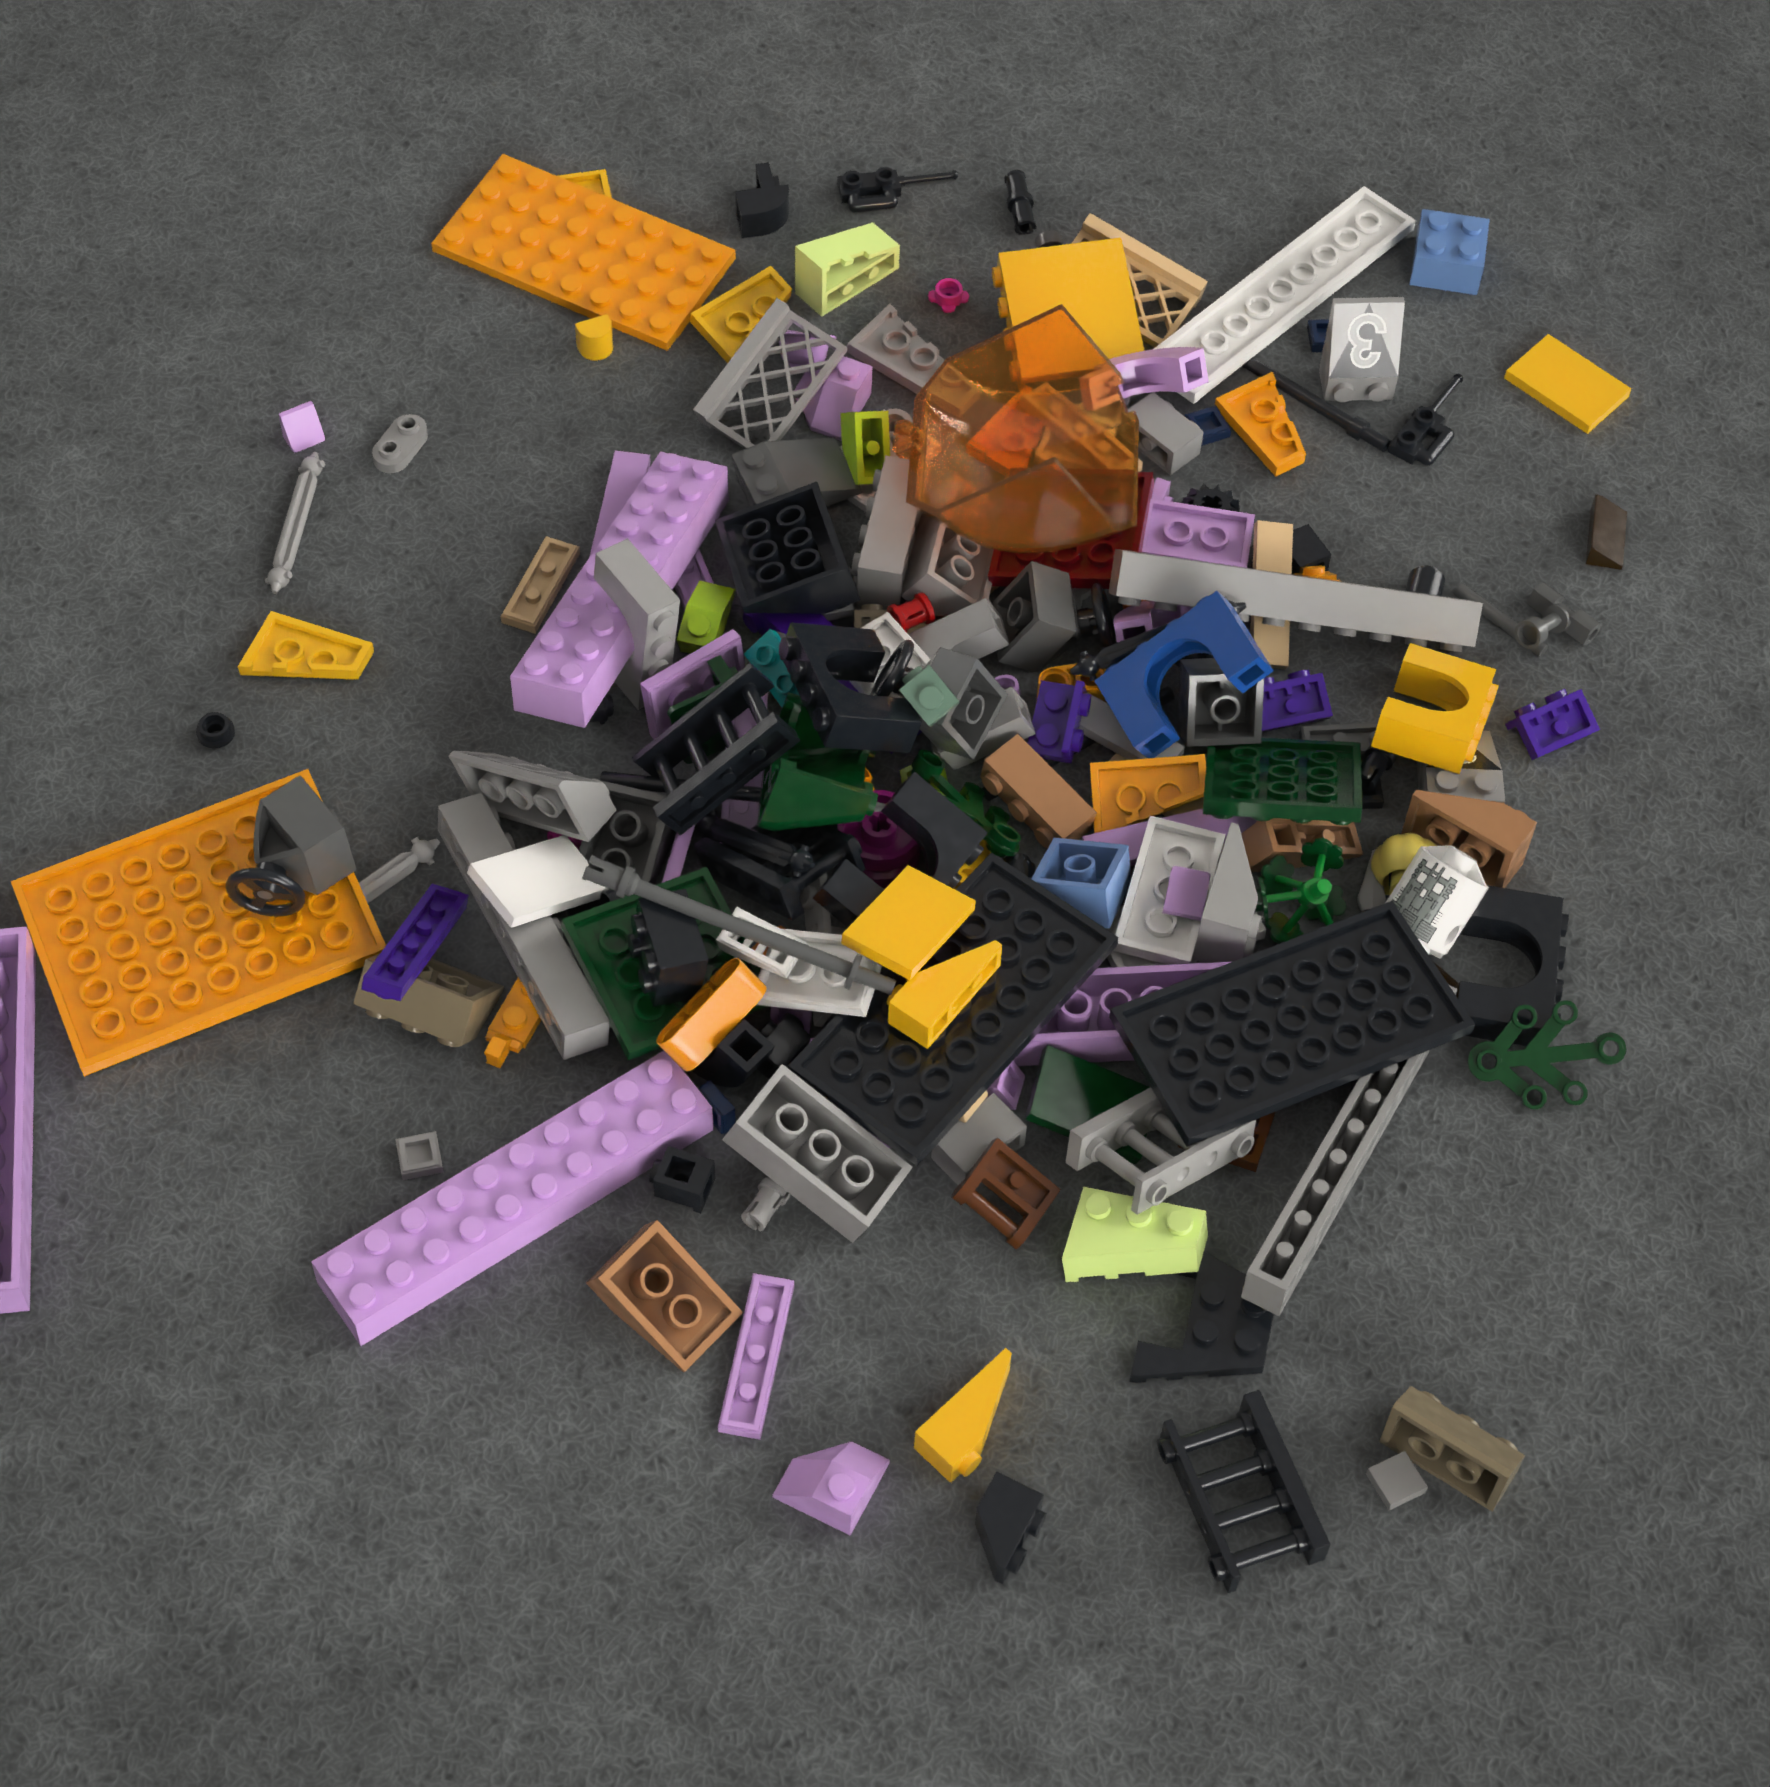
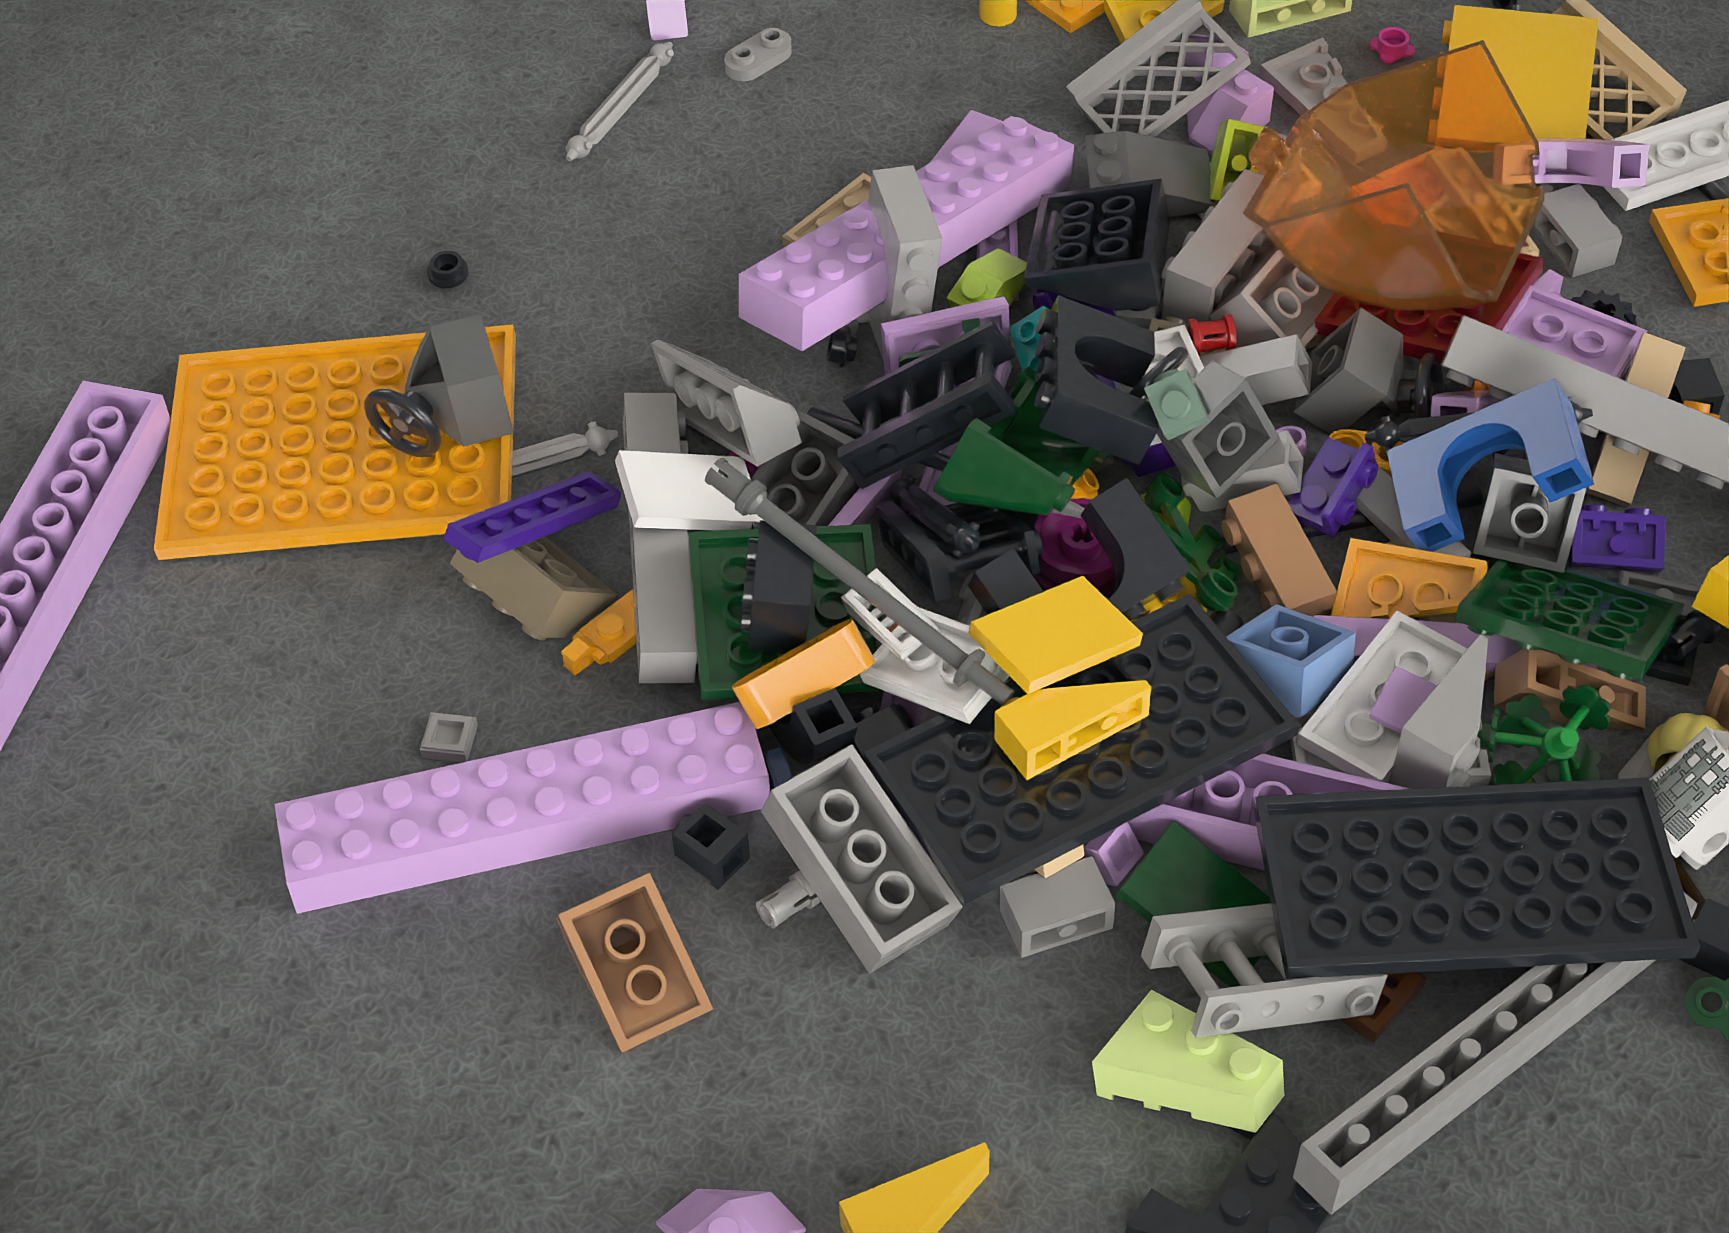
camera: 25 degrees right, 5 degrees down
(304, 650) = (569, 218): yellow wing -> none
(756, 1356) = (706, 1062): lavender tile -> none
(1013, 1182) = (1074, 960): reddish brown plate -> none
(1212, 423) = (1637, 237): dark blue tile -> none

